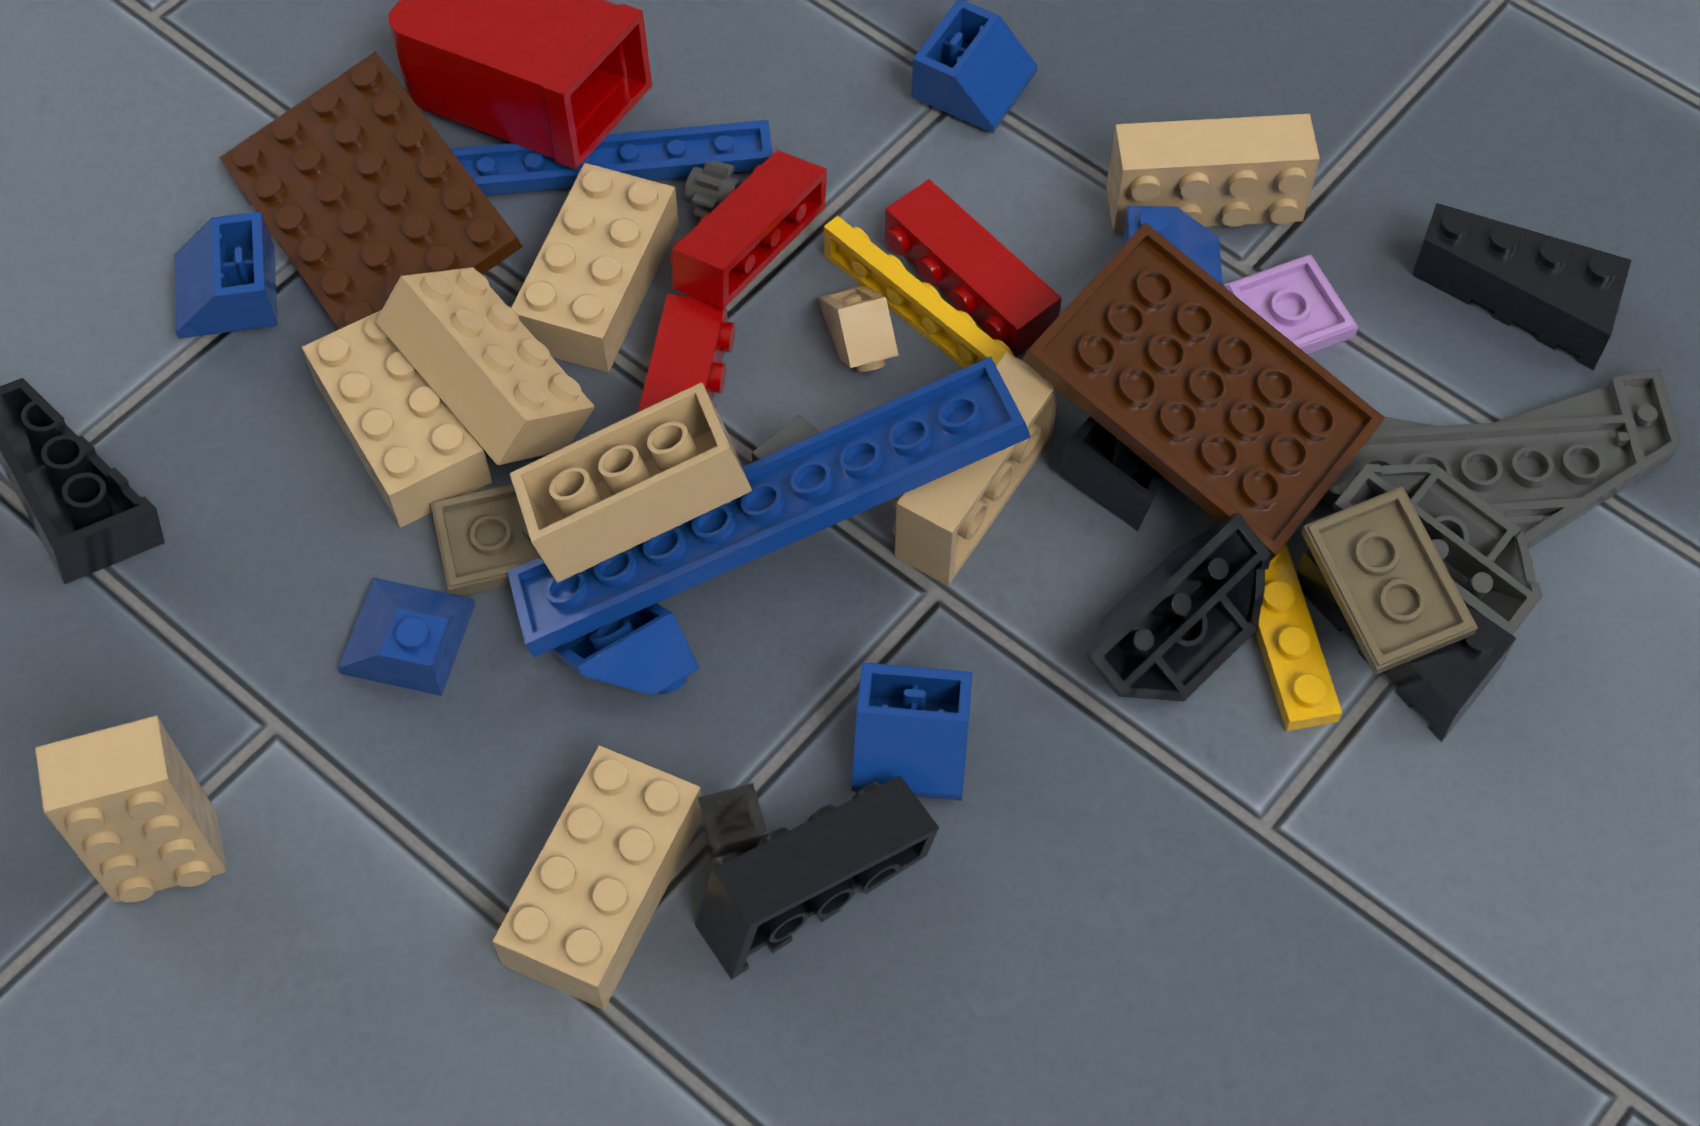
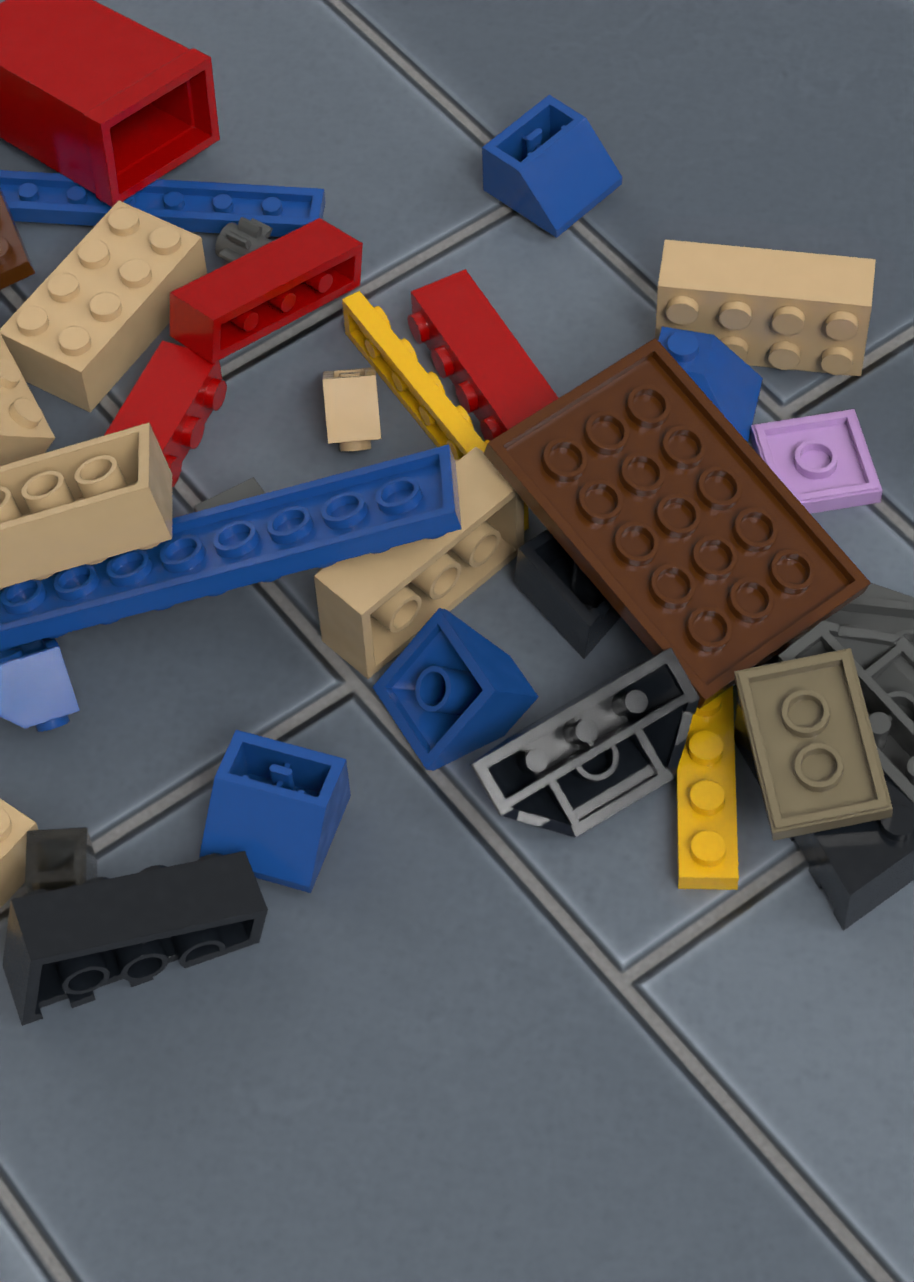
camera: 15 degrees right, 5 degrees down
(1035, 585) = (453, 691): none -> blue slope

